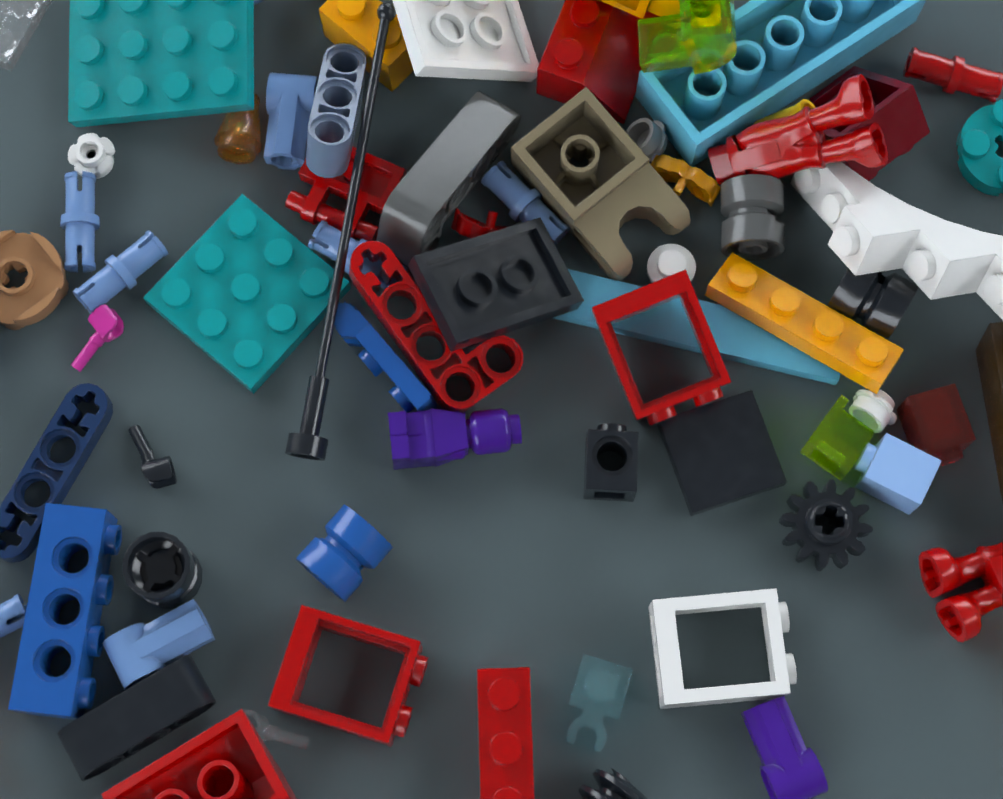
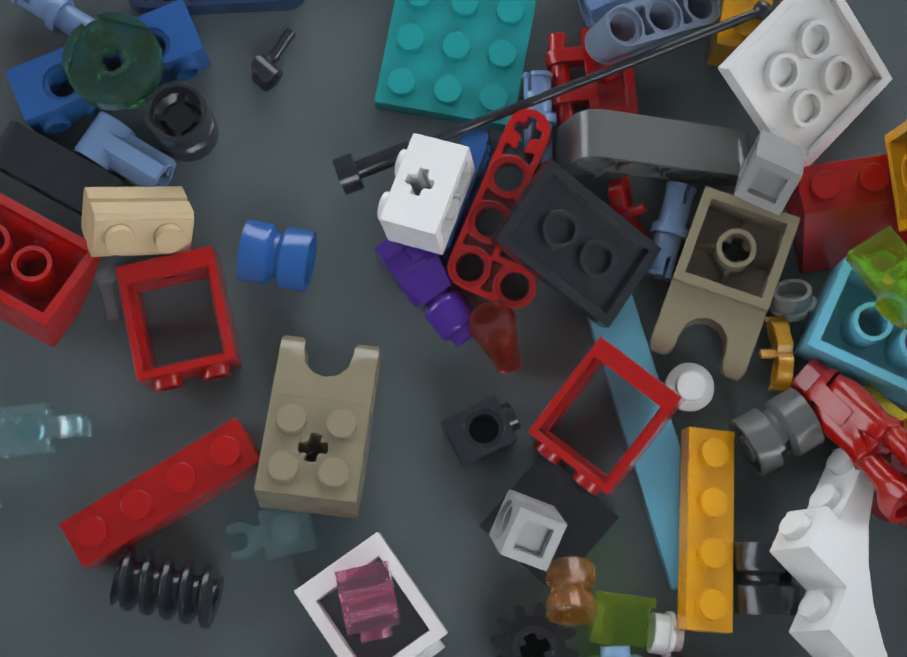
camera: 60 degrees right, 5 degrees up
(39, 597) = (100, 38): none -> clear green plate
(235, 661) = (136, 220): none -> tan brick
(398, 396) = (426, 193): none -> white brick
(519, 592) = (317, 416): none -> dark tan brick
(532, 398) = (496, 332): none -> clear red cone
(533, 87) = (770, 172): none -> light grey brick
(714, 635) = (368, 600): none -> clear pink brick
(725, 466) = (527, 530): none -> light grey brick
(798, 461) = (571, 594): none -> clear orange wheel

